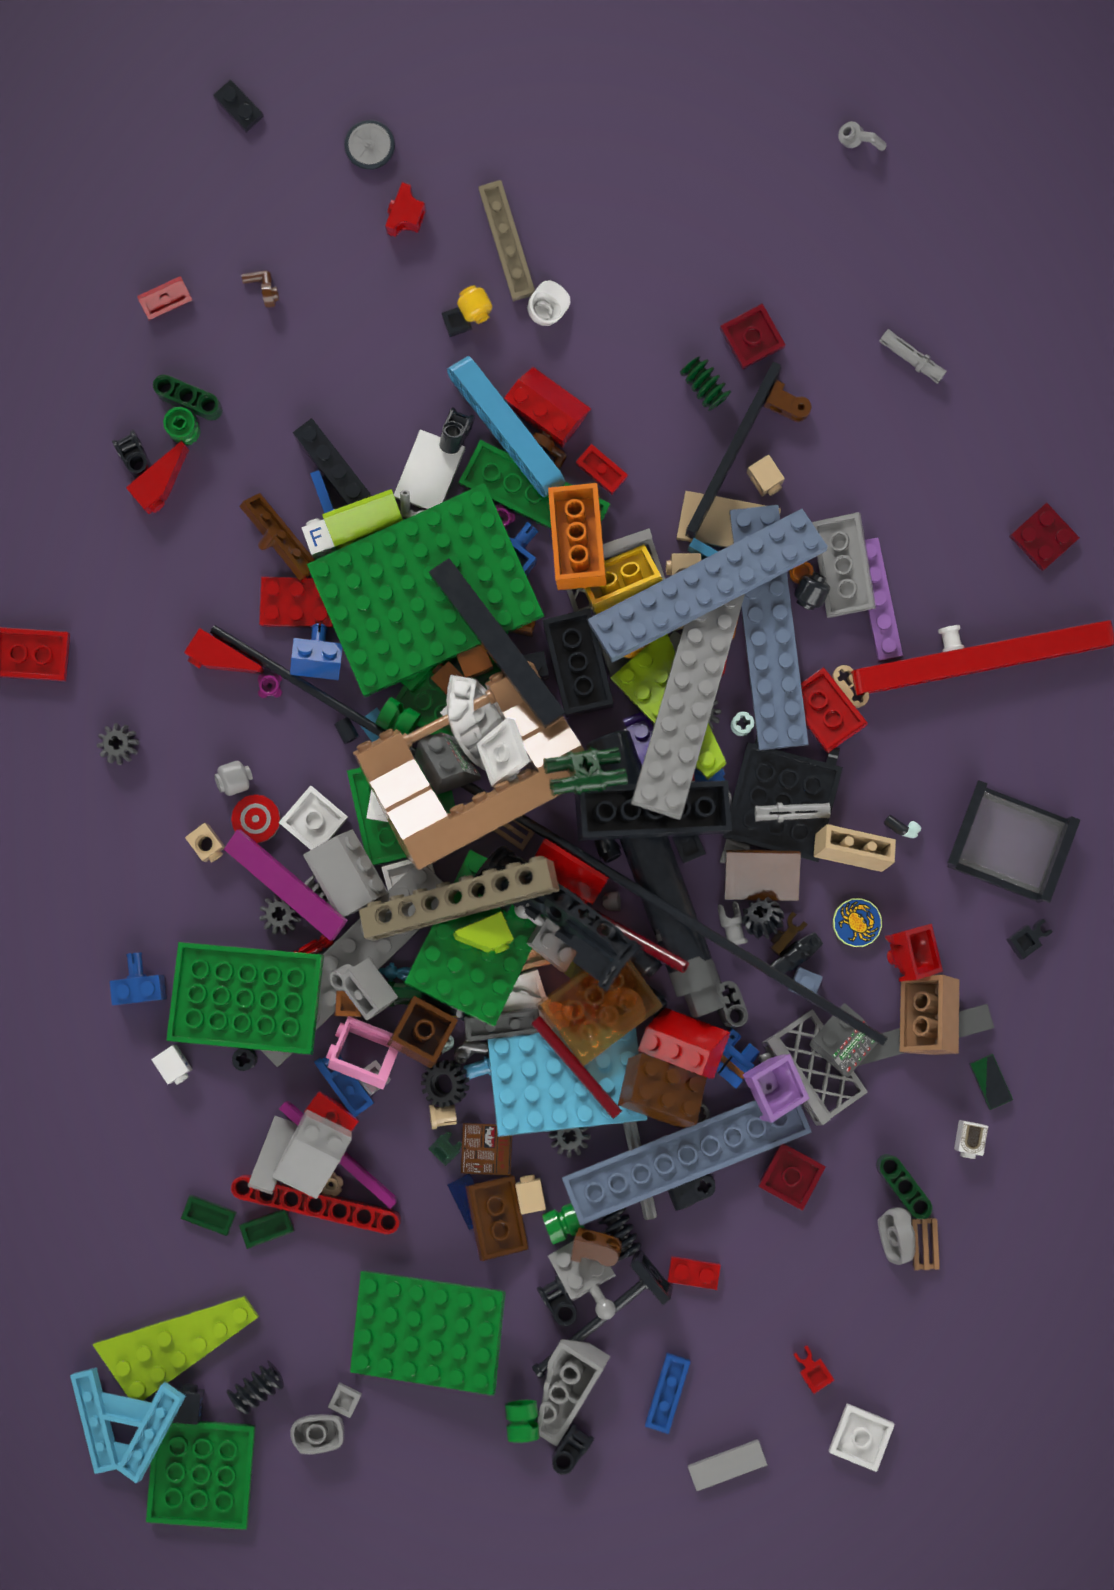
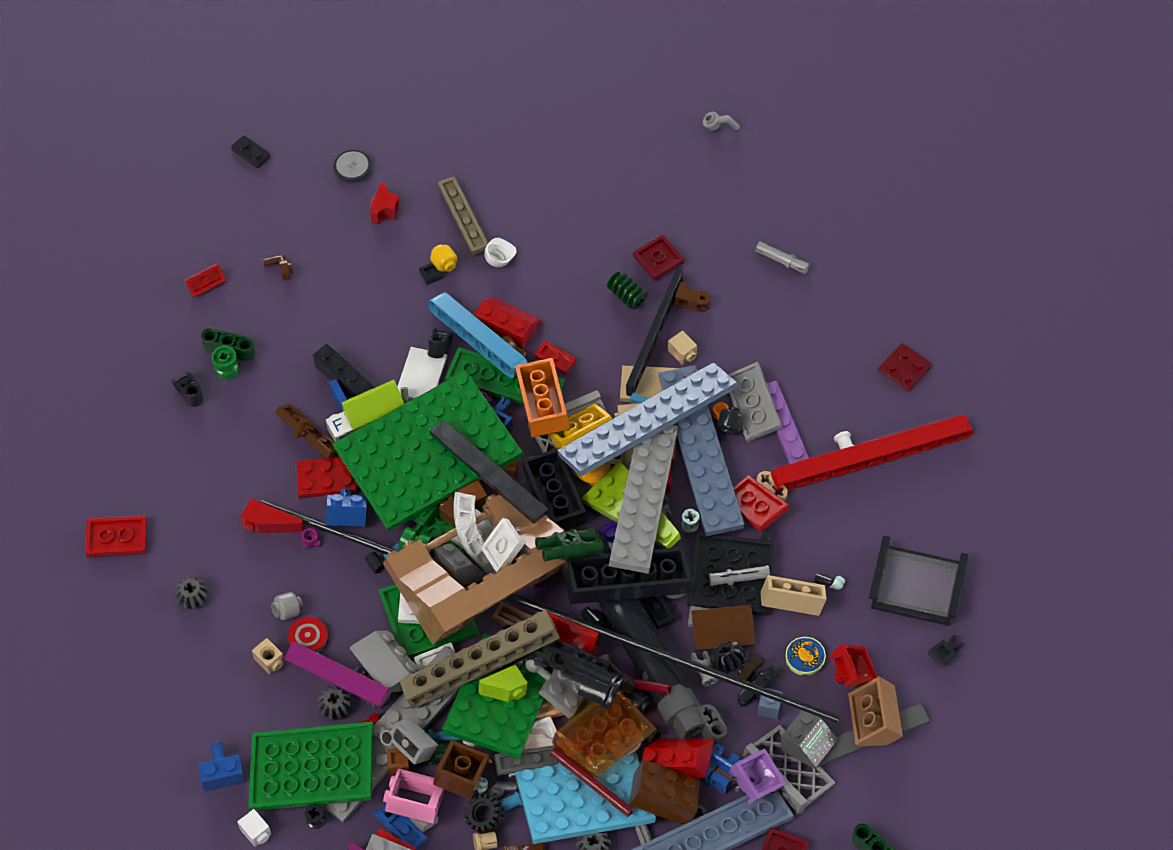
camera: 10 degrees left, 25 degrees down
(155, 484) = (207, 405): red slope -> none
(313, 819) = (353, 627): white plate -> none
(970, 1139) = (926, 805): brick -> none
(991, 1081) = (935, 762): black tile -> none

